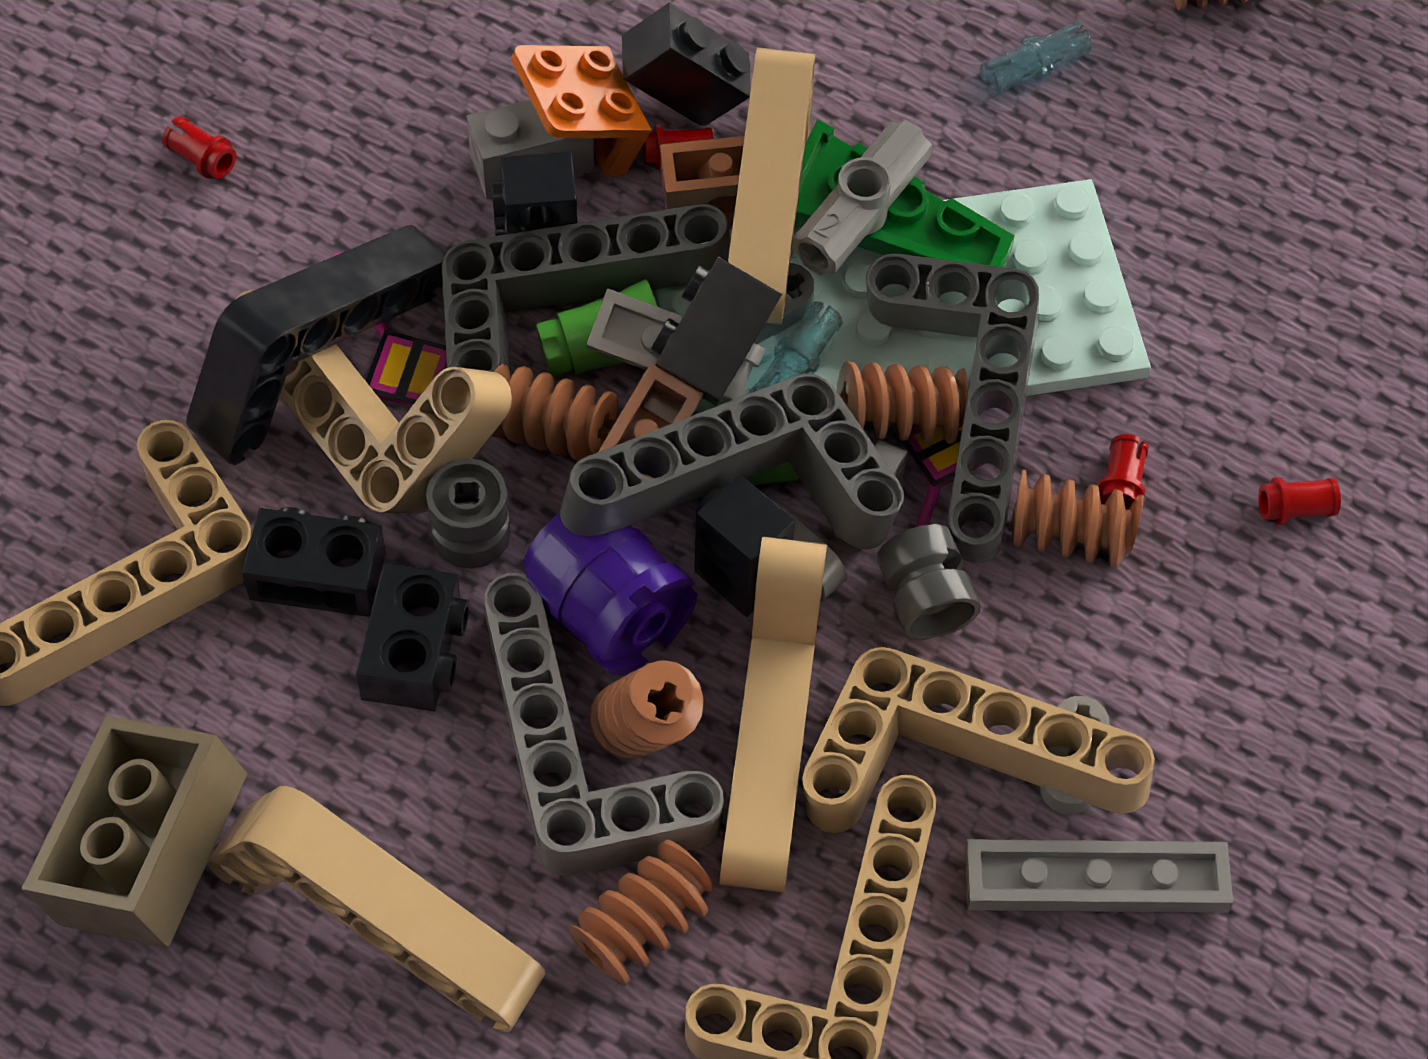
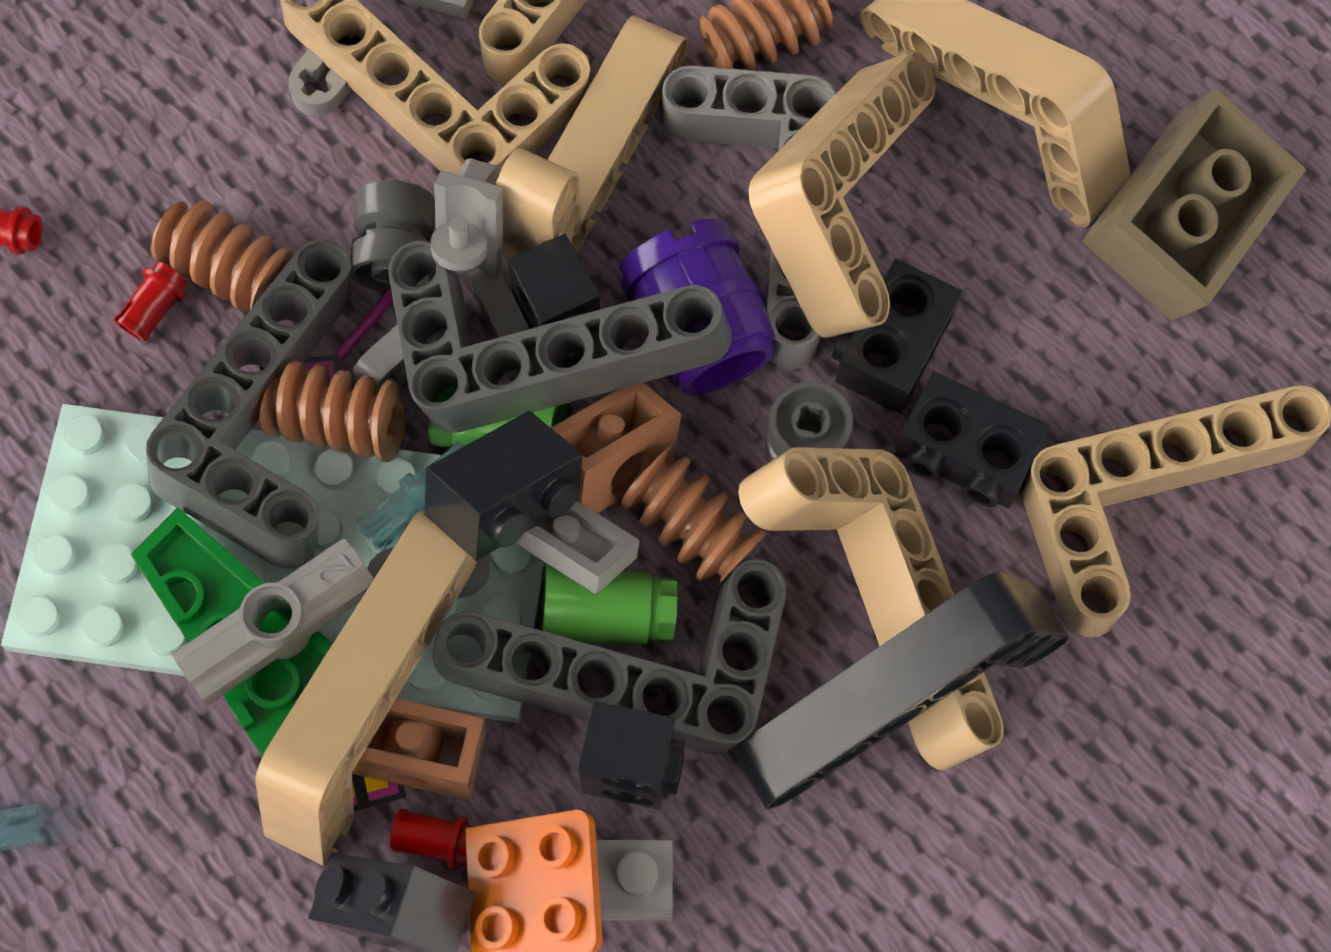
camera: 160 degrees left, 10 degrees up
(404, 365) = (811, 653): piece -> none
(514, 735) = (804, 185): none -> tan beam
(646, 710) = (705, 170): nougat piece -> none
(850, 538) = (469, 219): none -> light grey hips

